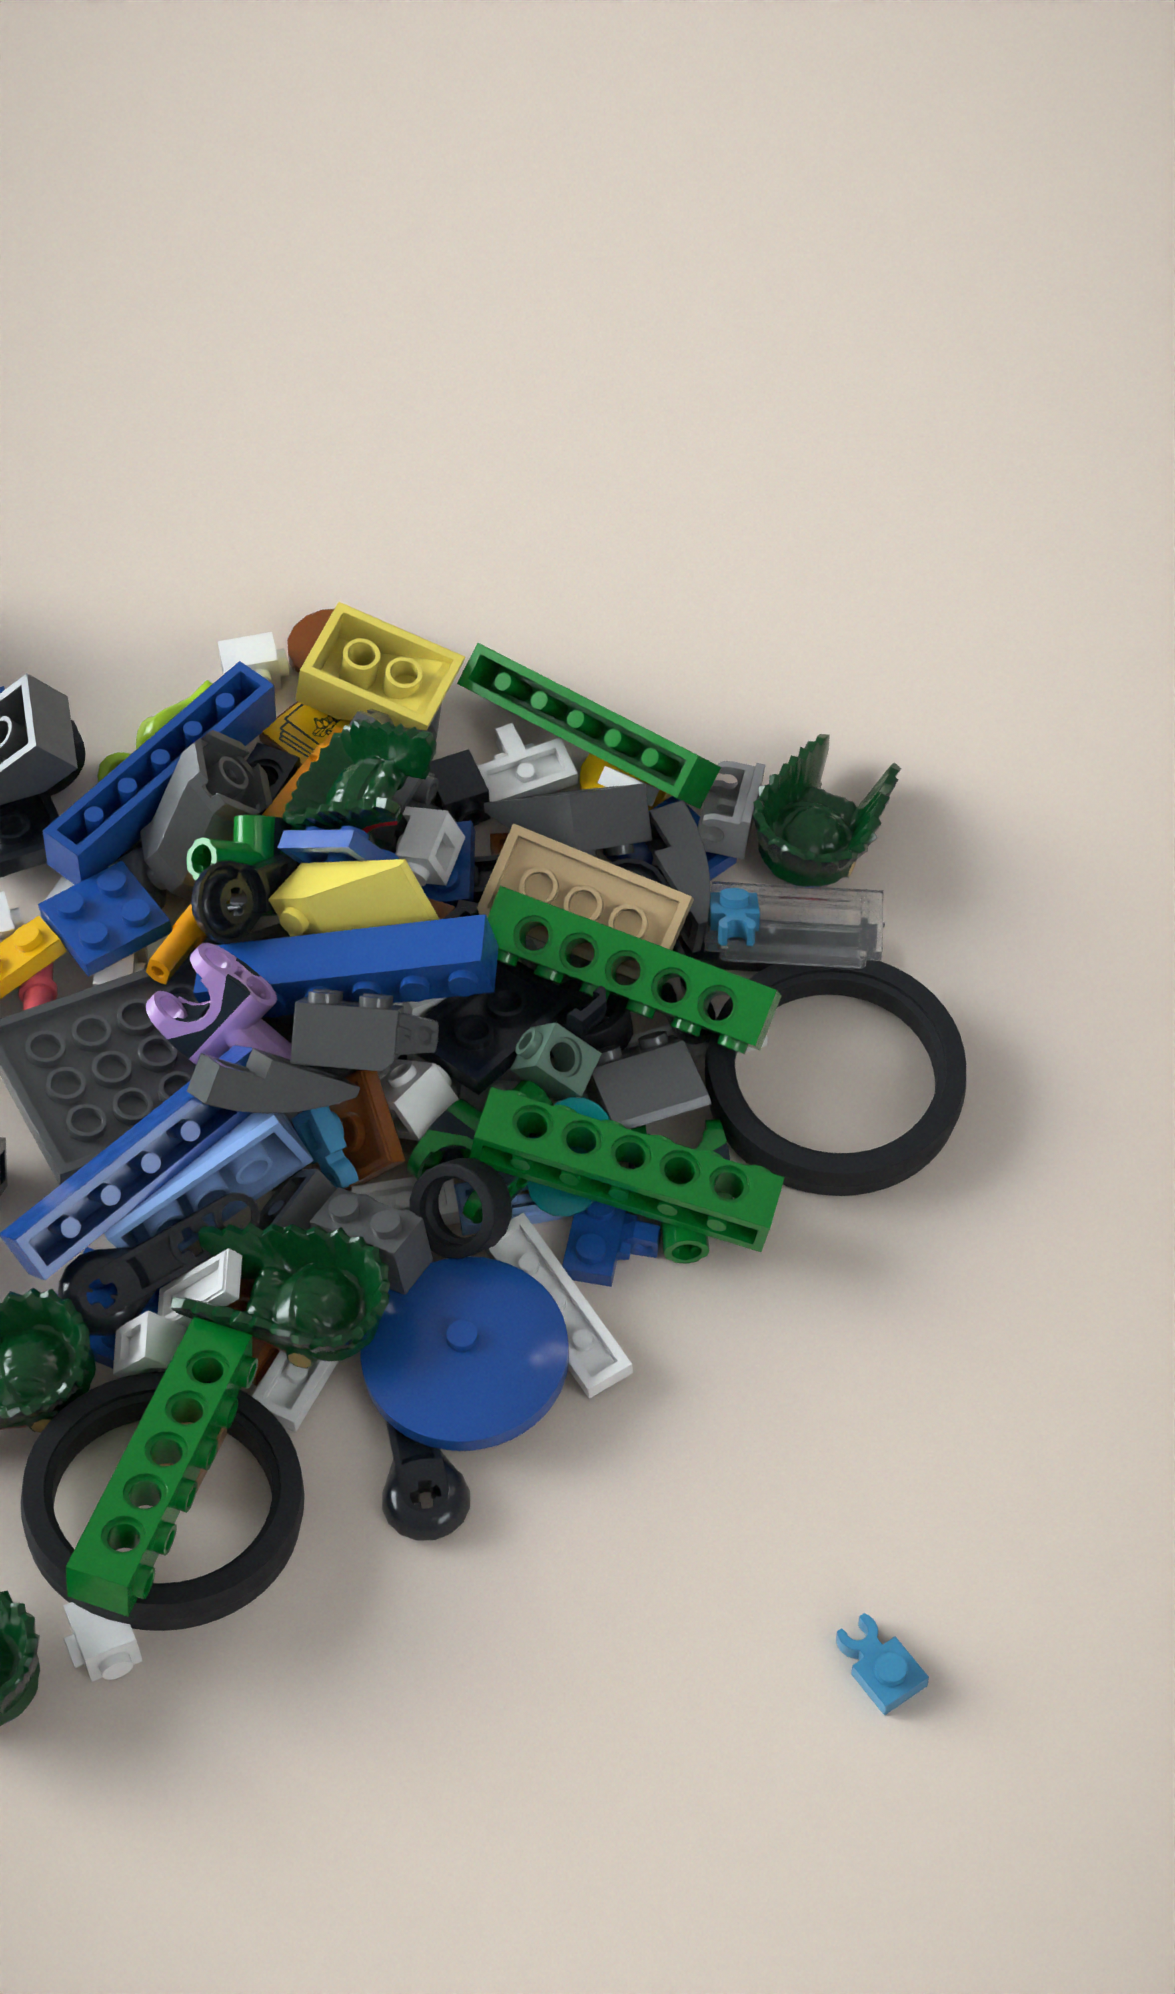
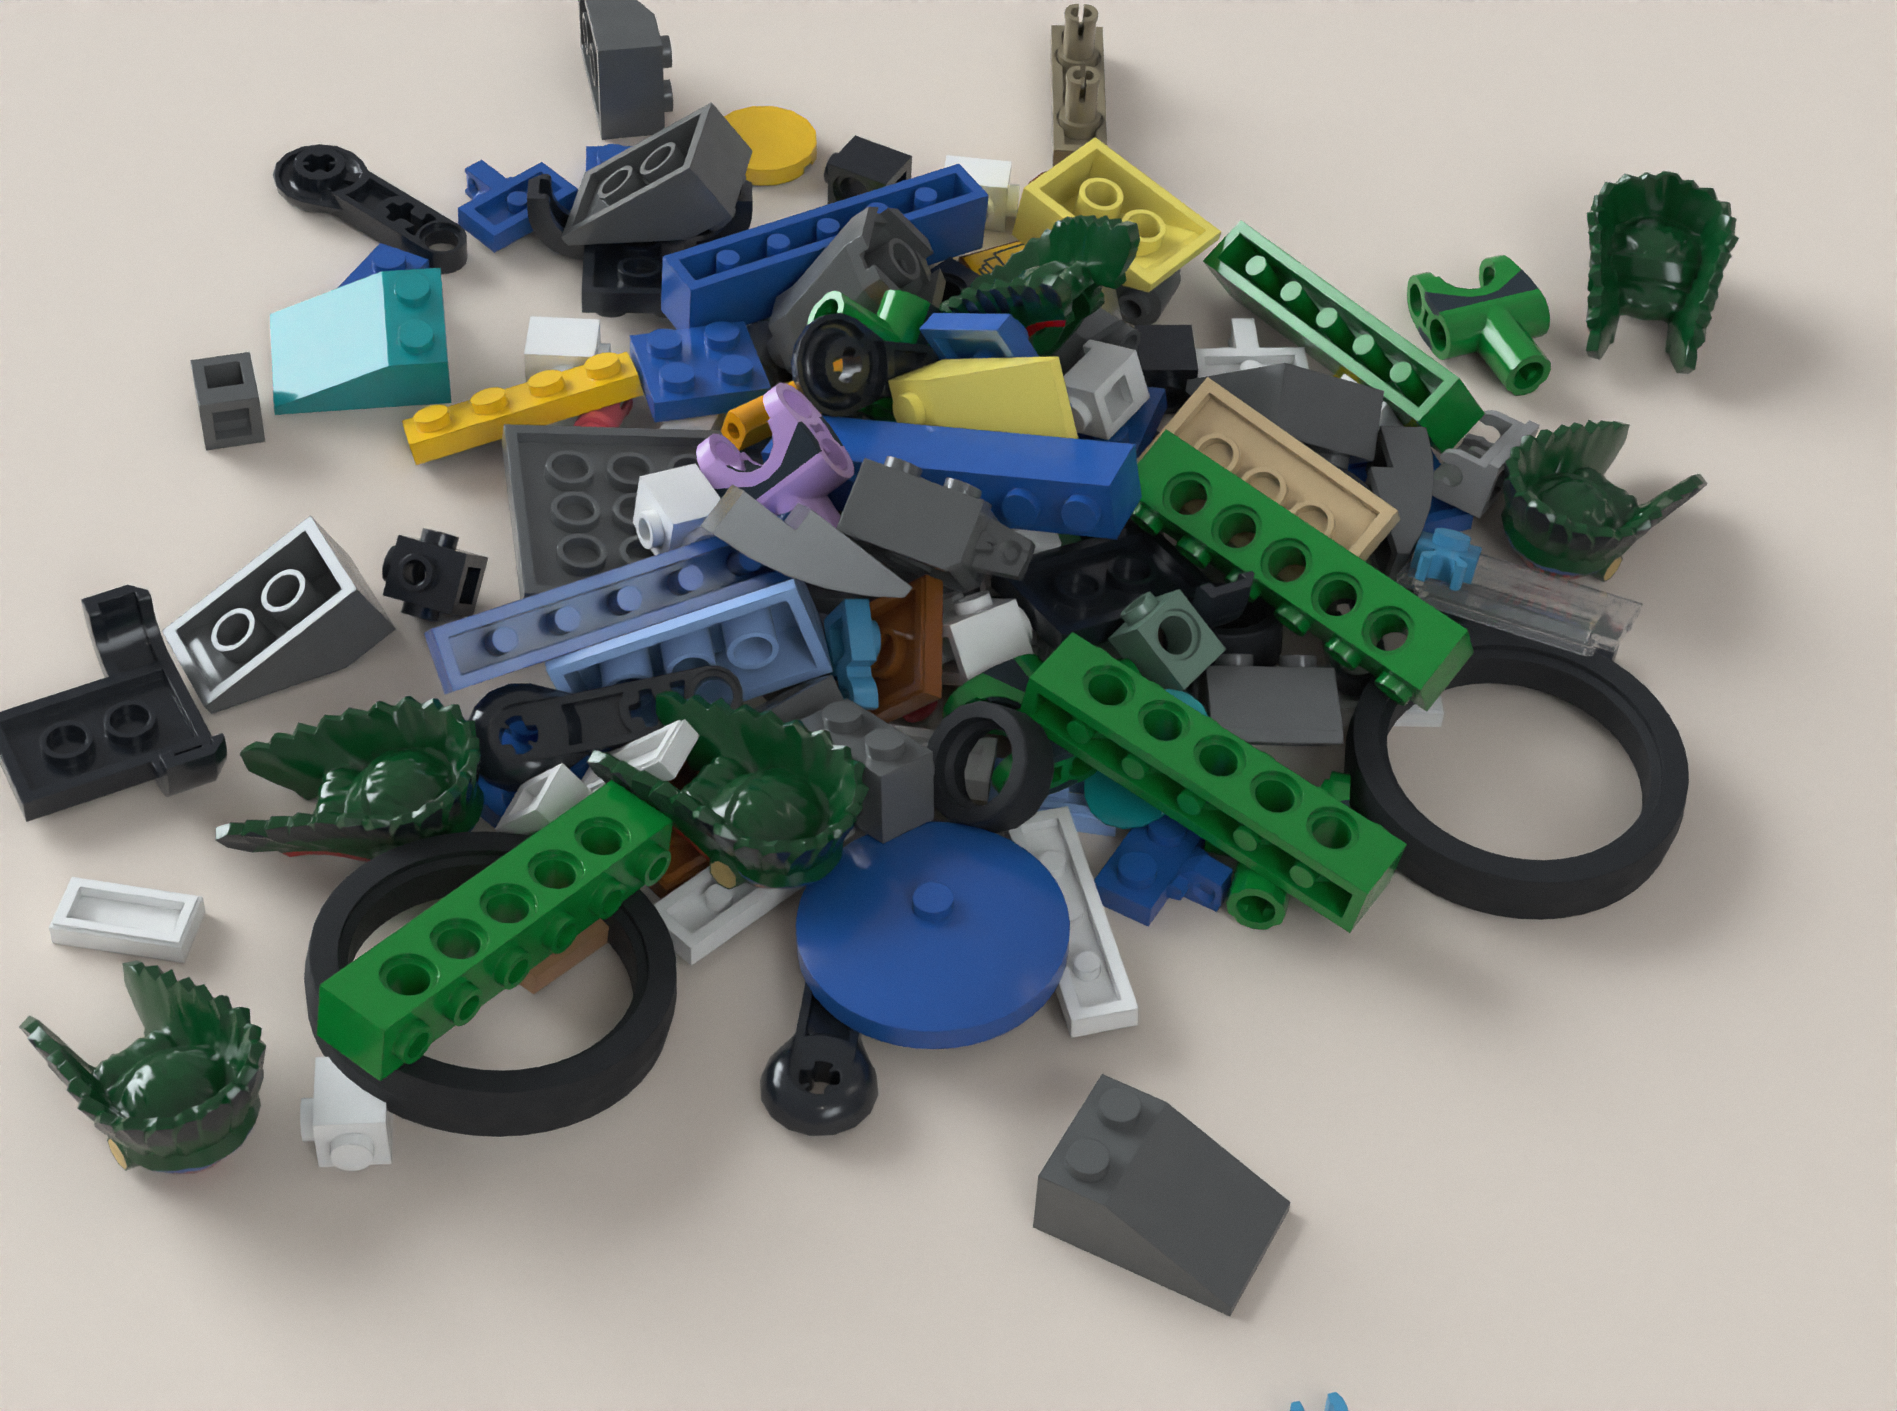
camera: 15 degrees right, 10 degrees down
(61, 658) = (779, 143): none -> yellow tile
(150, 1067) = (672, 508): none -> white brick
(158, 677) = (864, 168): none -> black brick
(295, 537) = (1077, 82): none -> dark tan plate
(690, 665) = (1488, 320): none -> green connector
(696, 1507) = (1157, 1197): none -> dark grey slope
(807, 572) = (1657, 257): none -> dark green piece

